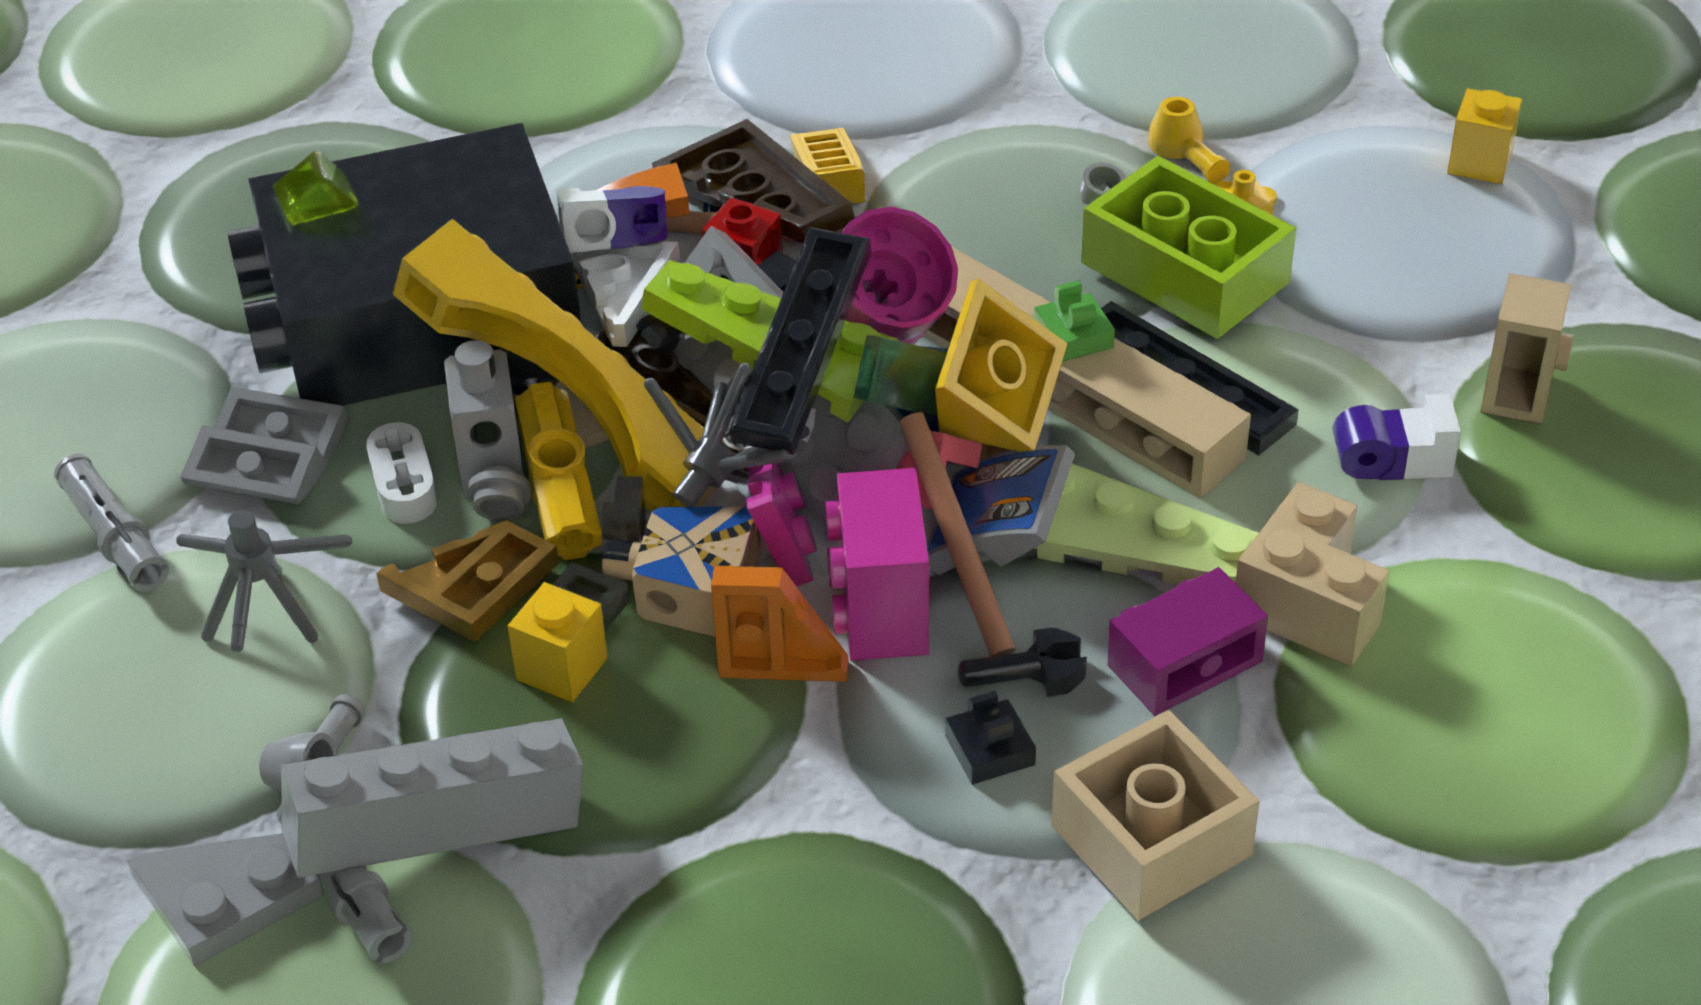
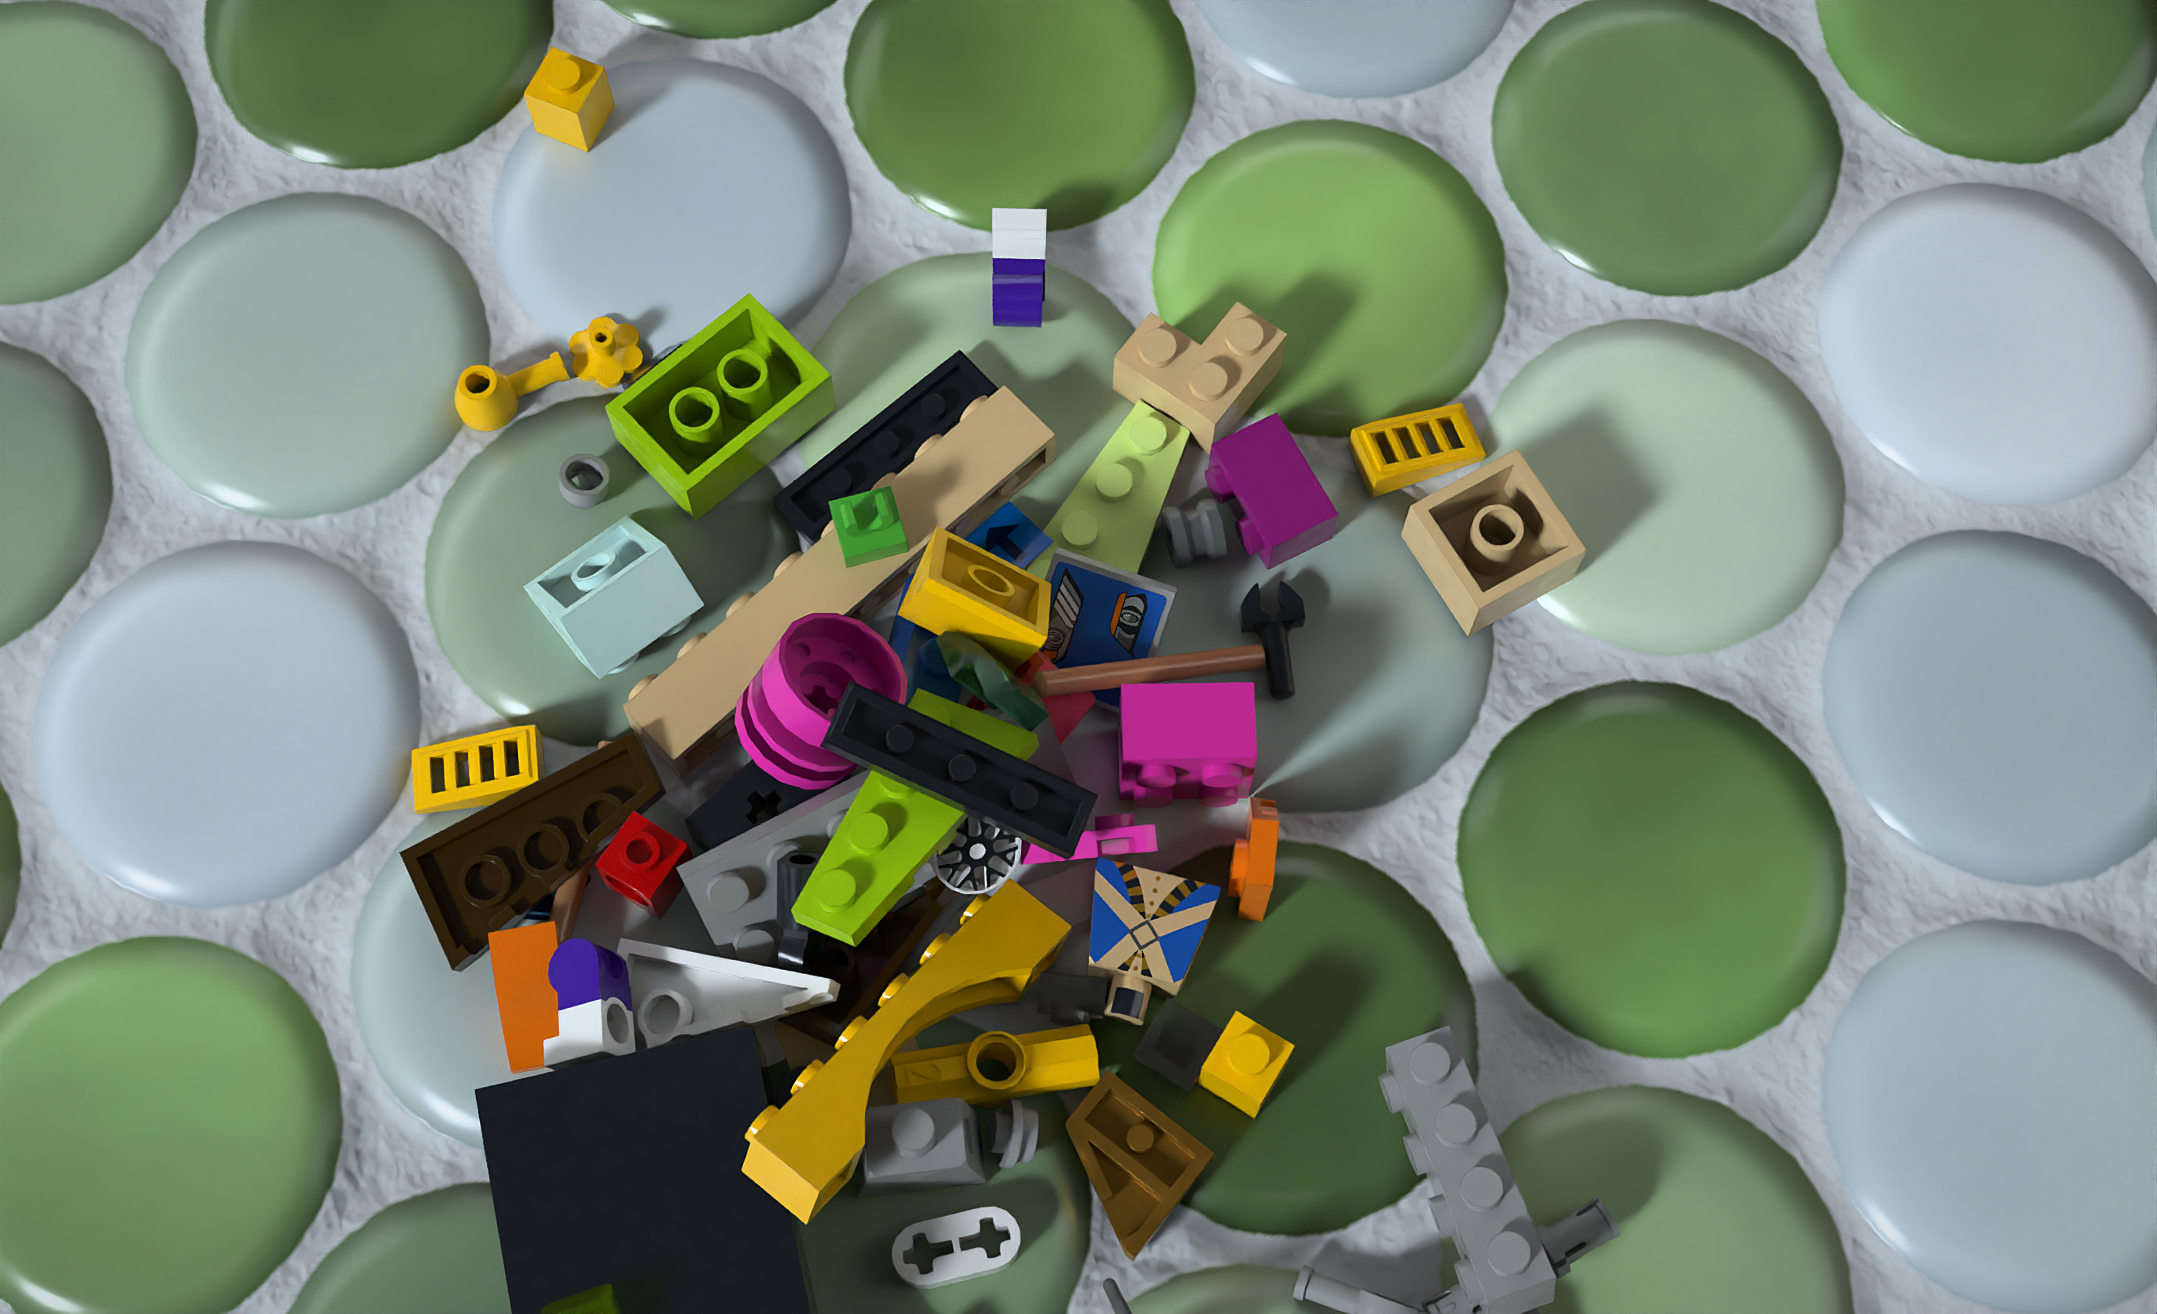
camera: 90 degrees left, 25 degrees up
(709, 459) = (1046, 896): dark grey plant -> none
(989, 211) = (615, 596): none -> light aqua slope
(989, 739) = (1367, 678): black tile -> none
(1097, 454) = (1010, 536): none -> clear blue sticker
(1124, 577) = (1194, 532): none -> dark grey wheel
(1261, 726) = (1383, 477): none -> yellow slope
(1527, 348) = (933, 129): tan brick -> none

